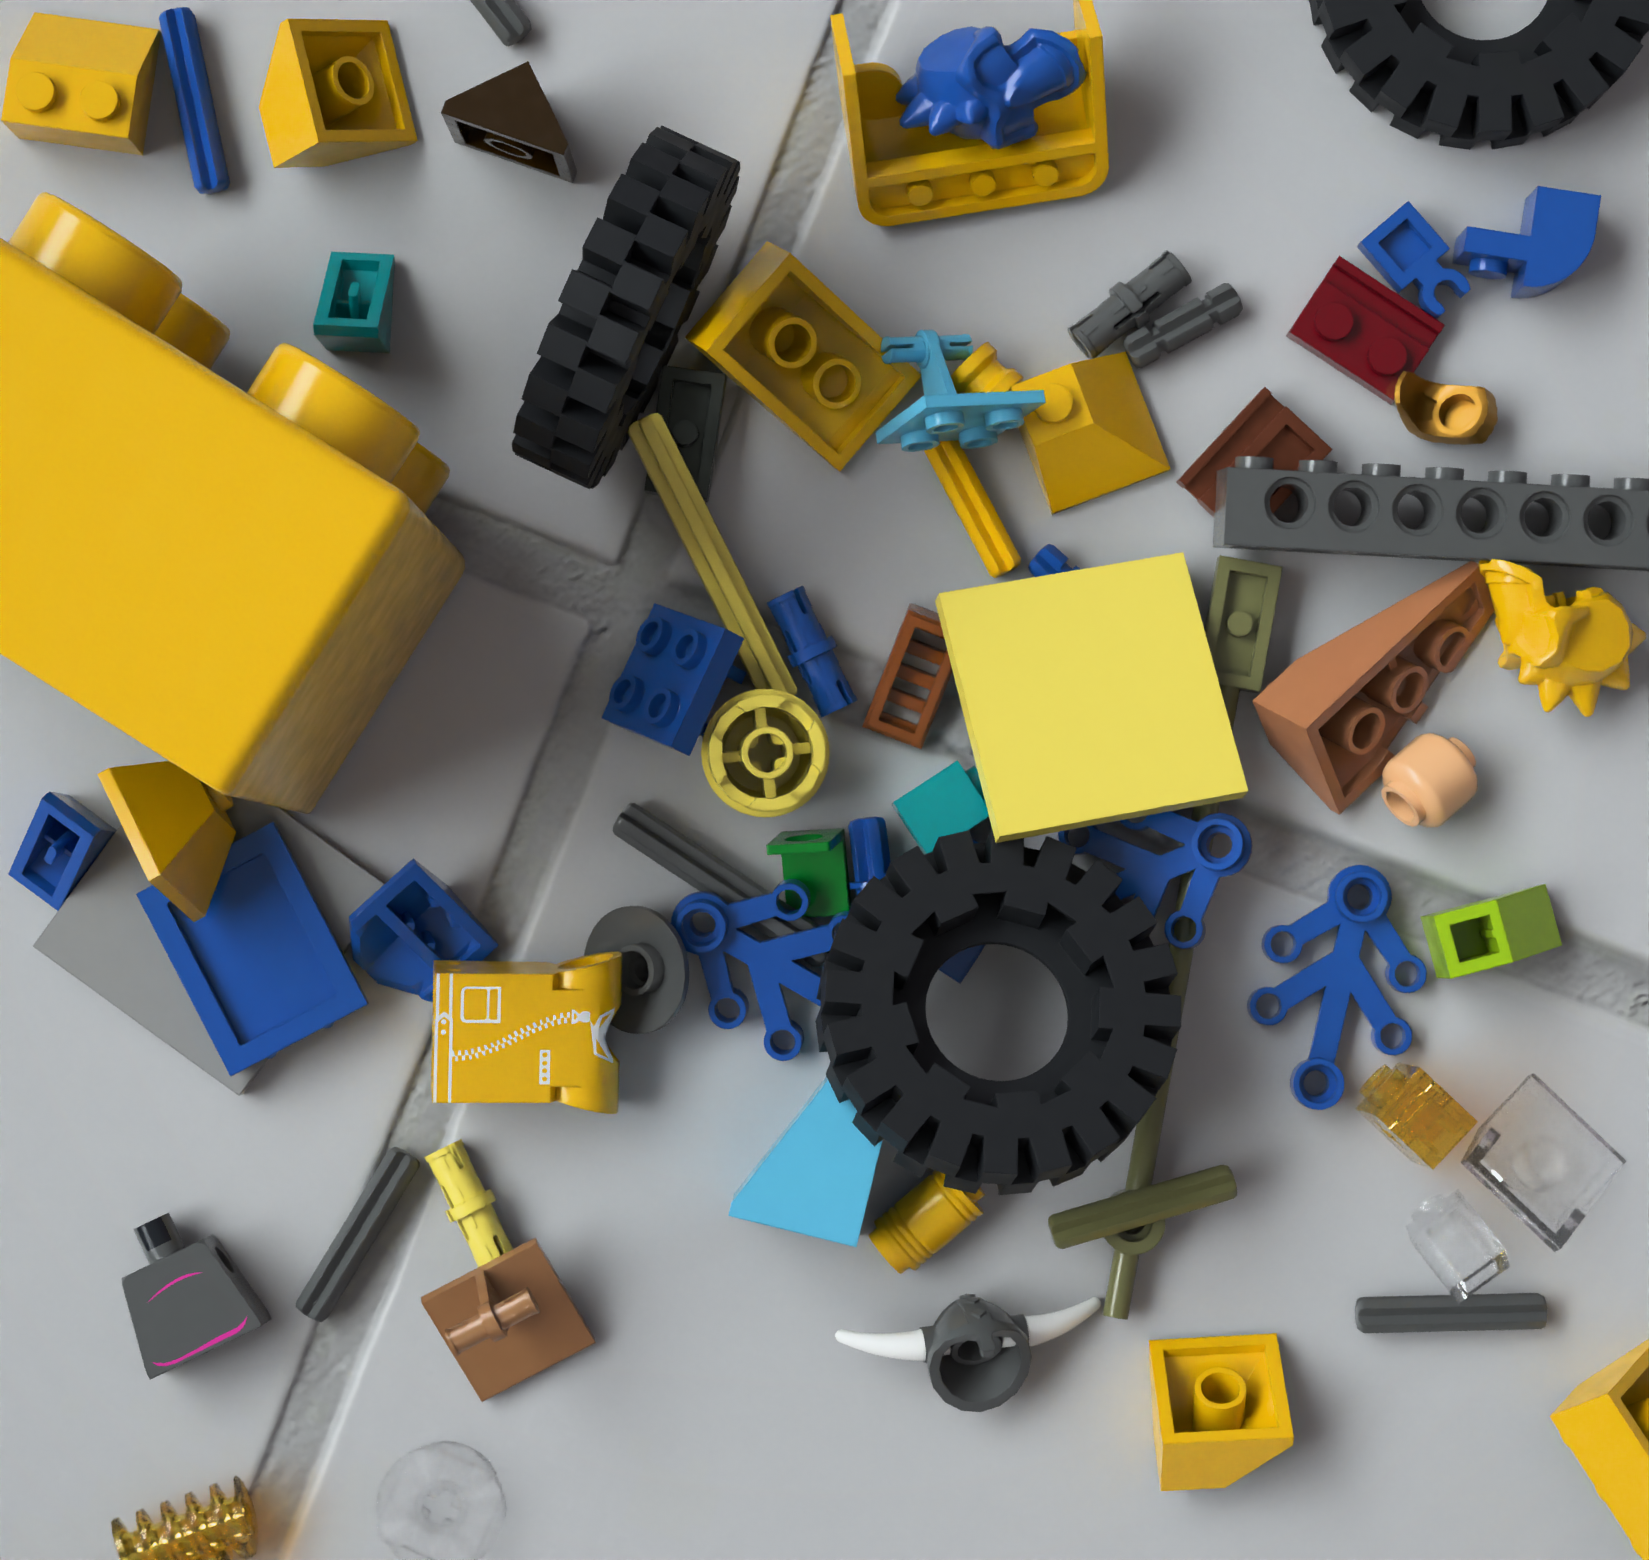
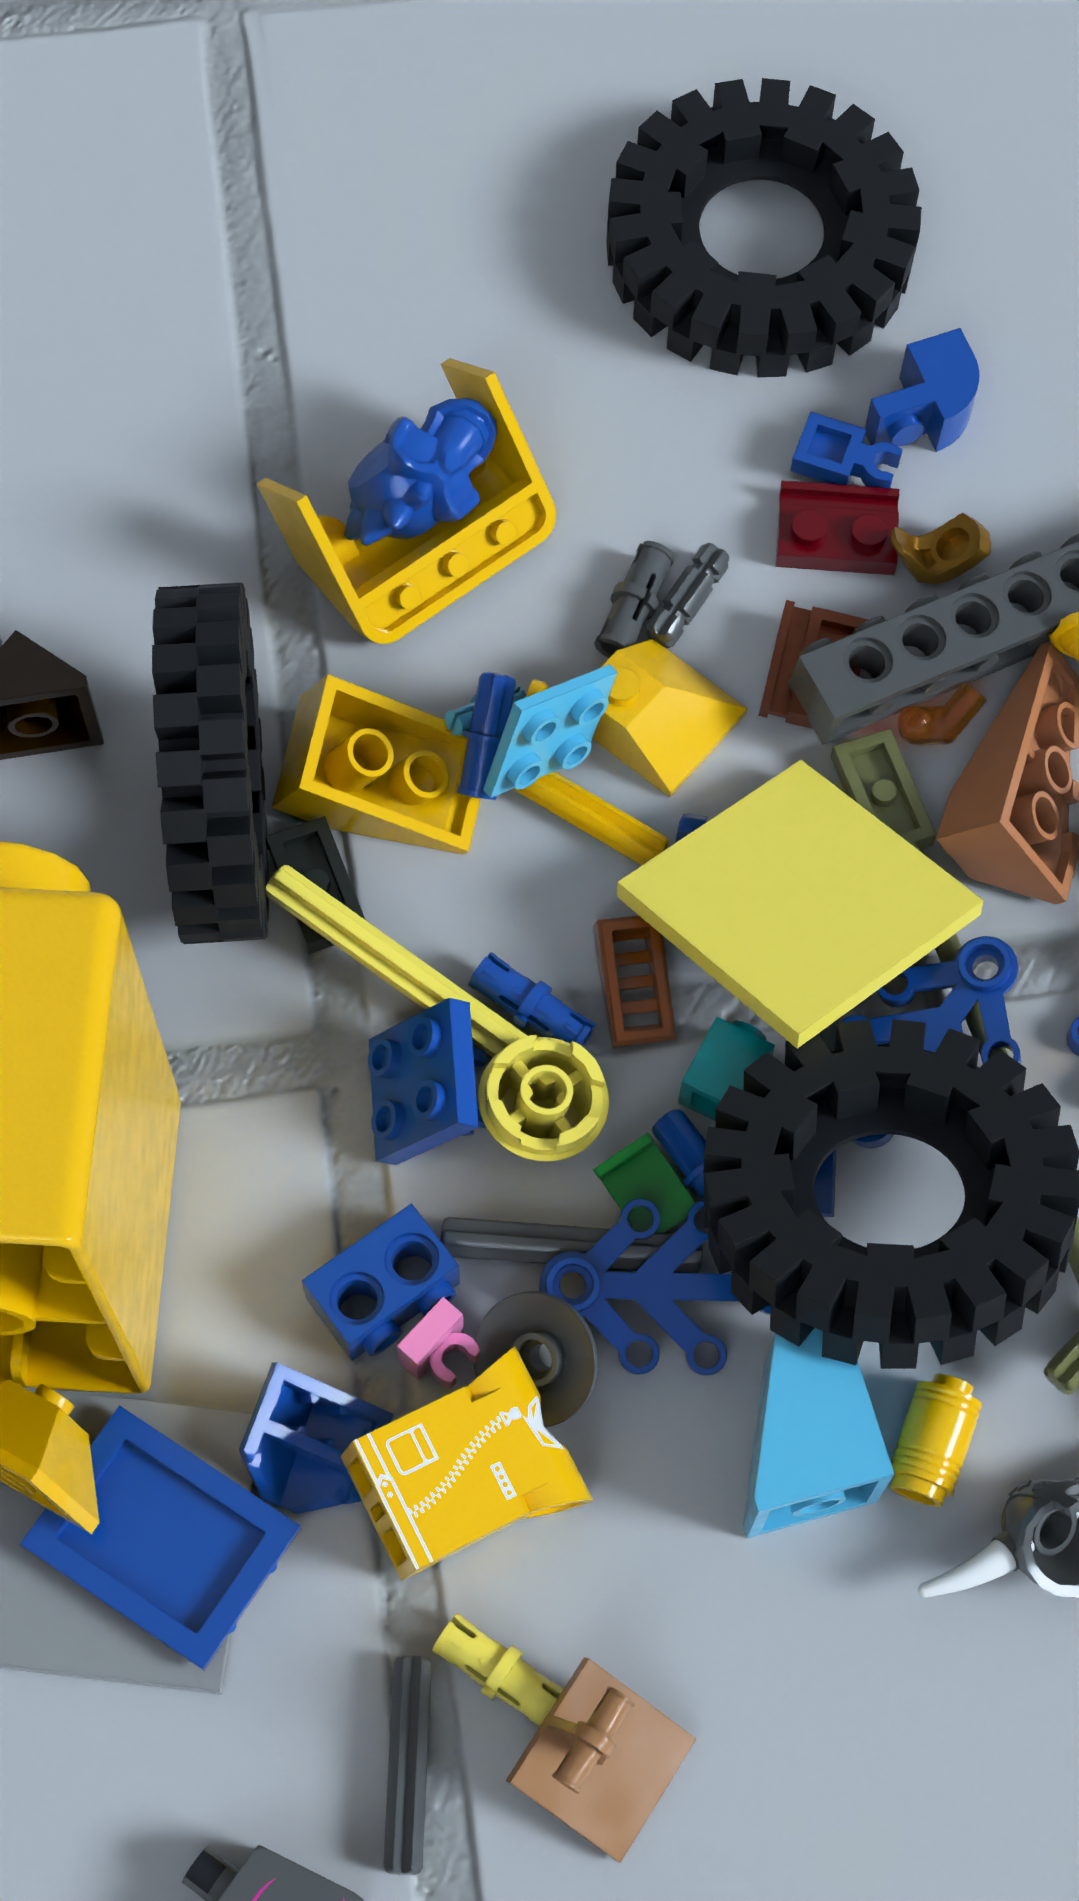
camera: 30 degrees left, 20 degrees down
(545, 816) = (370, 1271): none -> blue brick
(562, 906) = (433, 1339): none -> bright pink tile
(907, 380) = (488, 721): none -> blue axle
(1337, 581) = (940, 723): none -> clear orange arm

